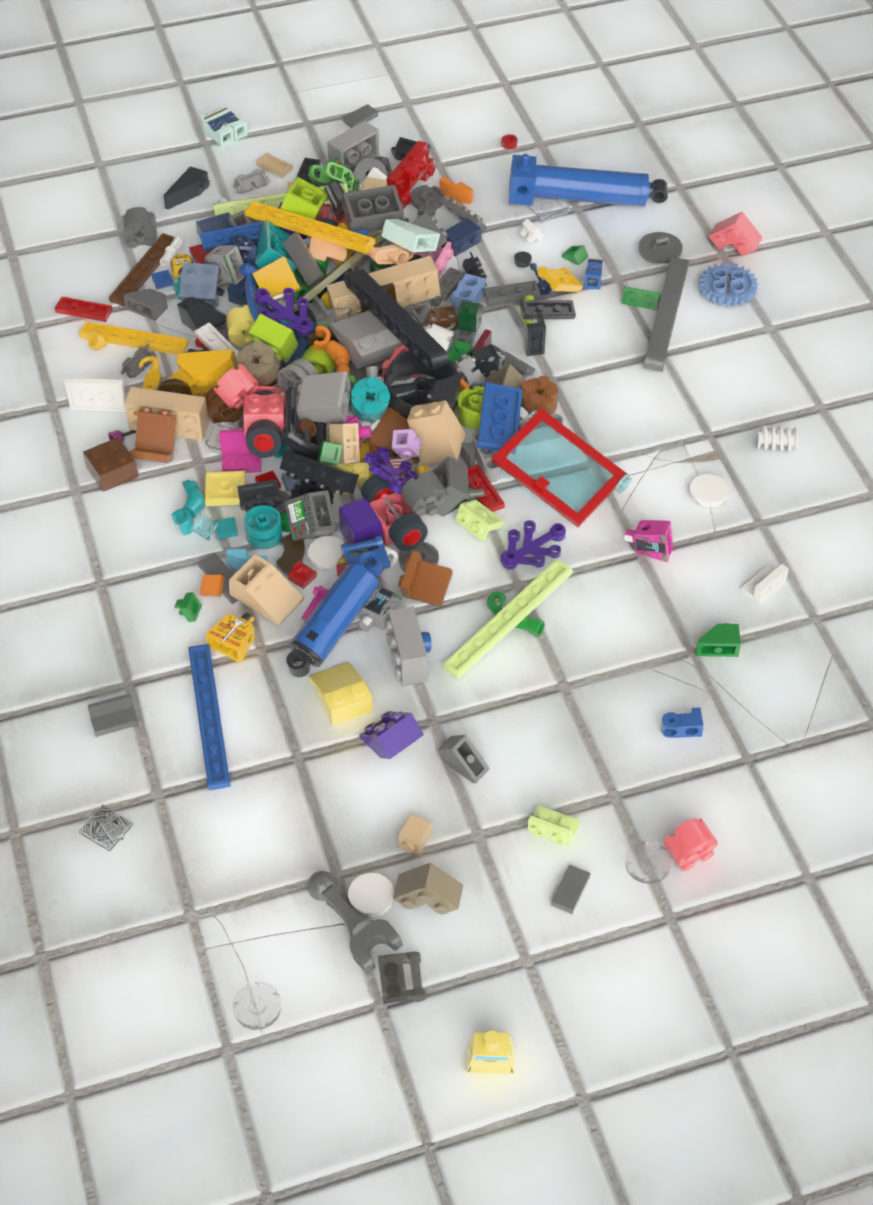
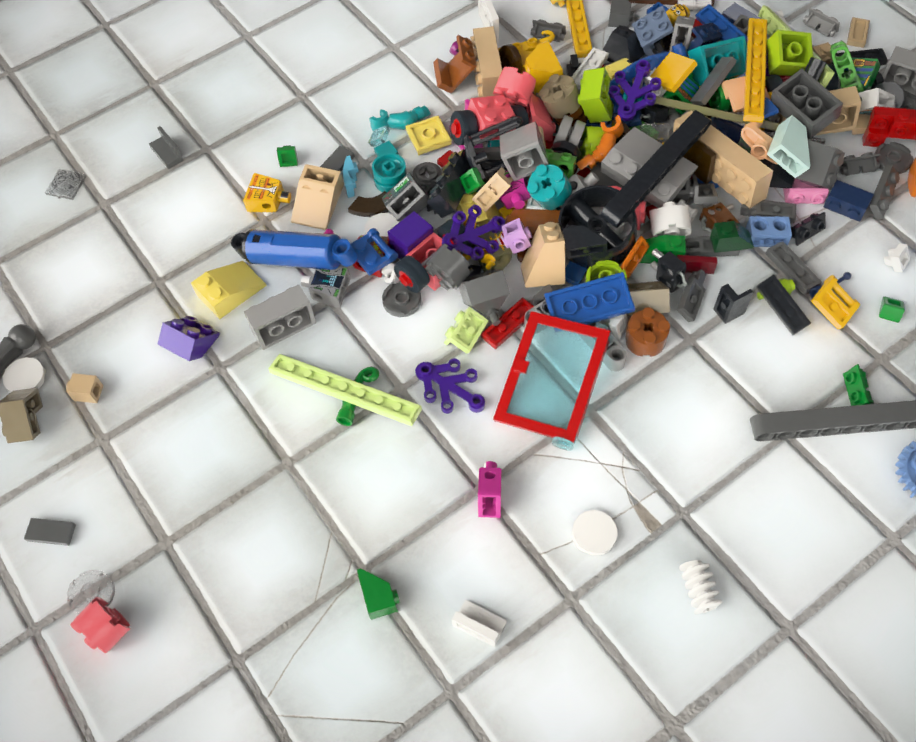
camera: 75 degrees right, 10 degrees up
(110, 464) = (420, 52): reddish brown brick -> none
(209, 717) = (182, 209): blue tile -> none
(212, 585) = (317, 160): orange tile -> none
(259, 494) = (418, 156): black bracket -> none
(302, 575) = (352, 219): red tile -> none
(307, 425) = (494, 156): reddish brown tile -> none
(424, 580) = (368, 306): dark orange bracket -> none
(427, 641) = (299, 332): tile -> none
(463, 758) = (173, 400): slope -> none
(465, 366) = (647, 252): hinge -> none
(522, 259) = (852, 263): black tile -> none
(553, 825) = (115, 497): yellowish green bracket -> none
(593, 272) = (868, 332): blue leg -> none
(683, 724) = (255, 578): blue leg -> none

